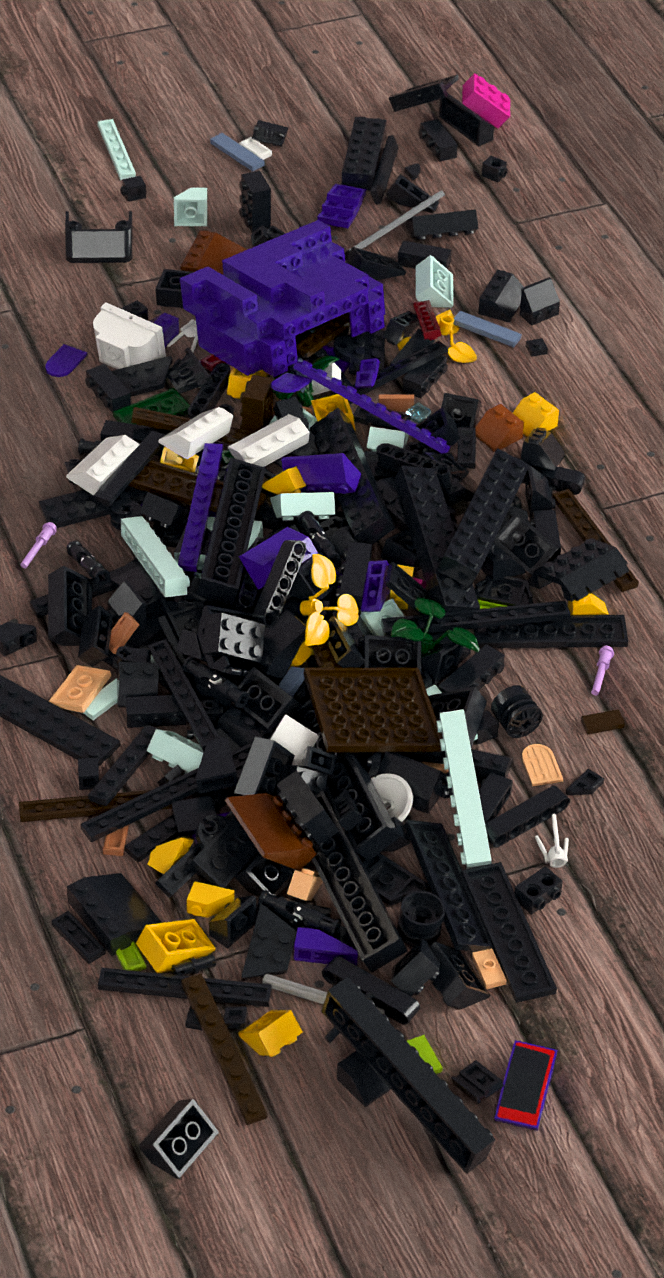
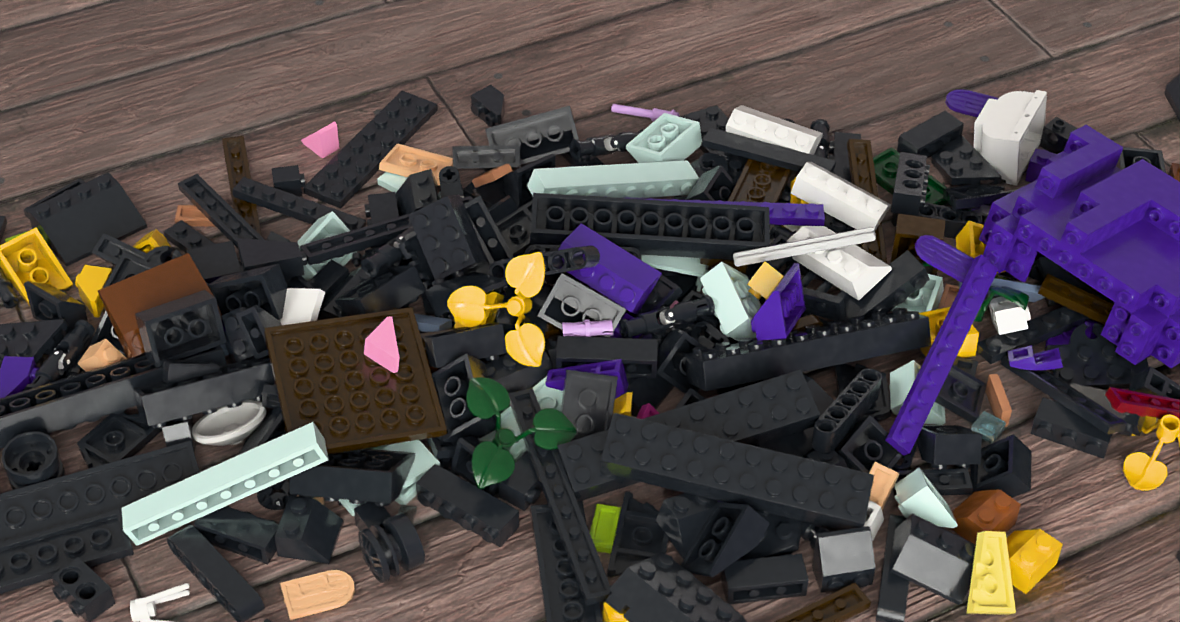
camera: 85 degrees right, 0 degrees up
(33, 749) = (323, 141): none -> bright pink slope
(92, 530) = (666, 140): none -> light aqua slope
(178, 400) = (910, 184): none -> black brick
(271, 447) = (804, 246): none -> axle
(333, 588) = (588, 328): none -> lavender pin
(349, 680) = (382, 346): none -> bright pink slope
(473, 467) = (882, 484): none -> light nougat plate
(485, 447) = (921, 498): none -> light aqua slope
(556, 428) = (991, 576): none -> light yellow wing

